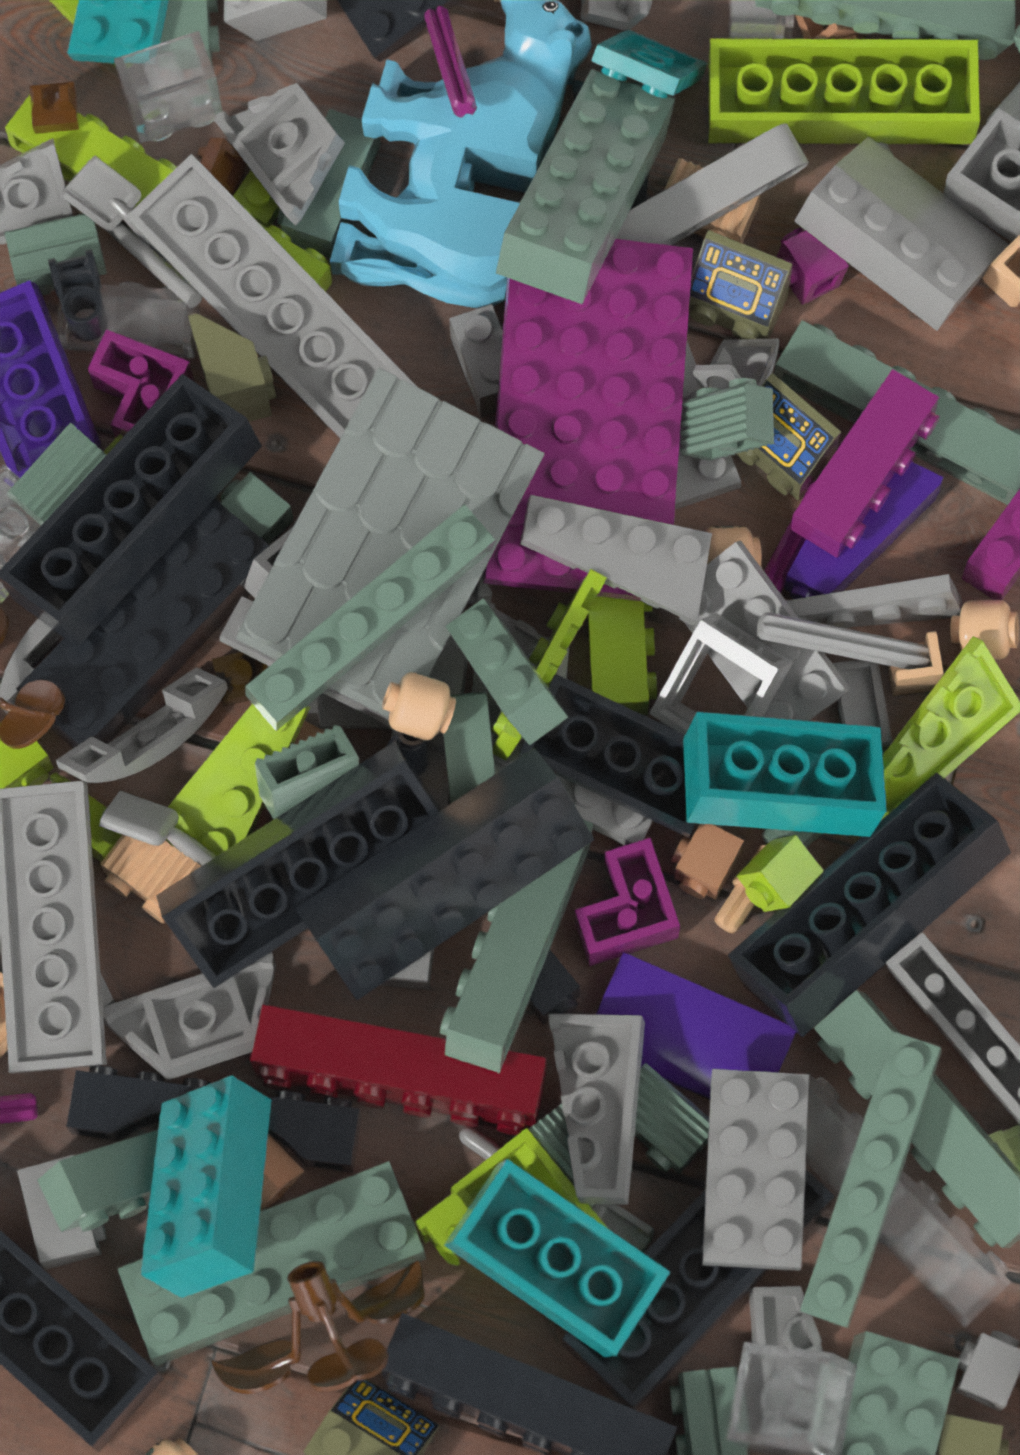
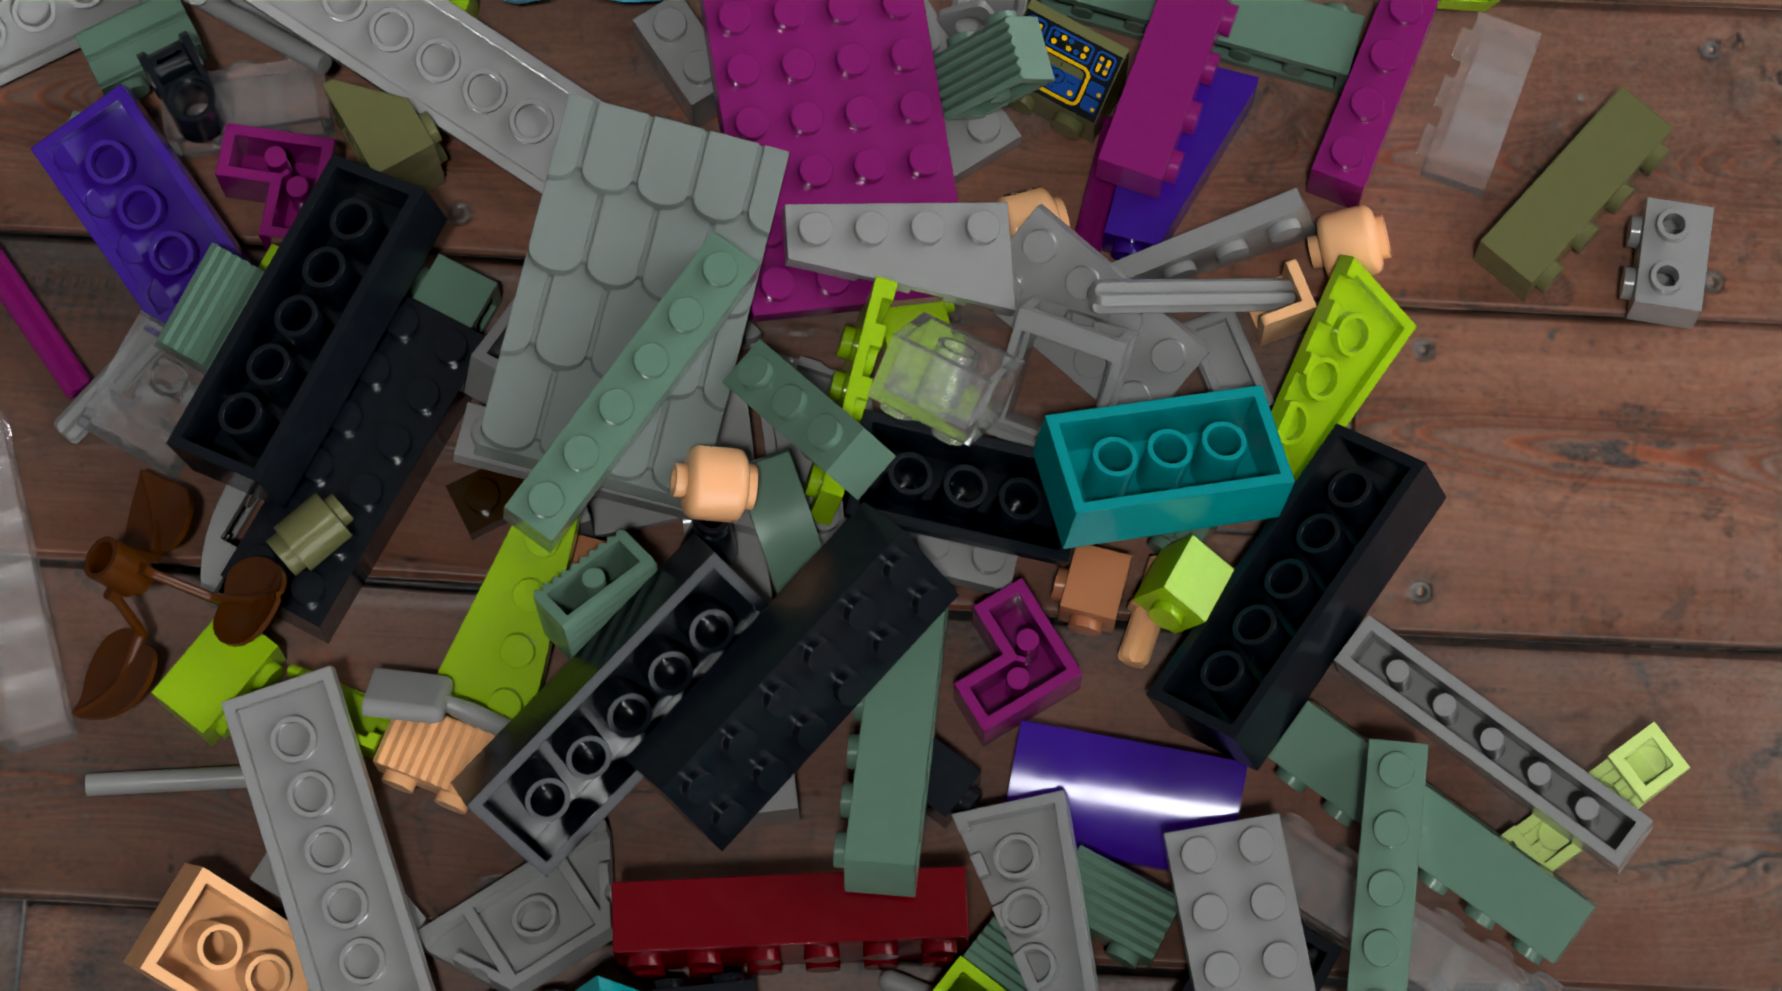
camera: 15 degrees left, 0 degrees up
(93, 671) = (311, 533): none -> olive brick
(187, 707) = (430, 551): light grey slope -> none
(625, 664) = (944, 380): none -> clear brick

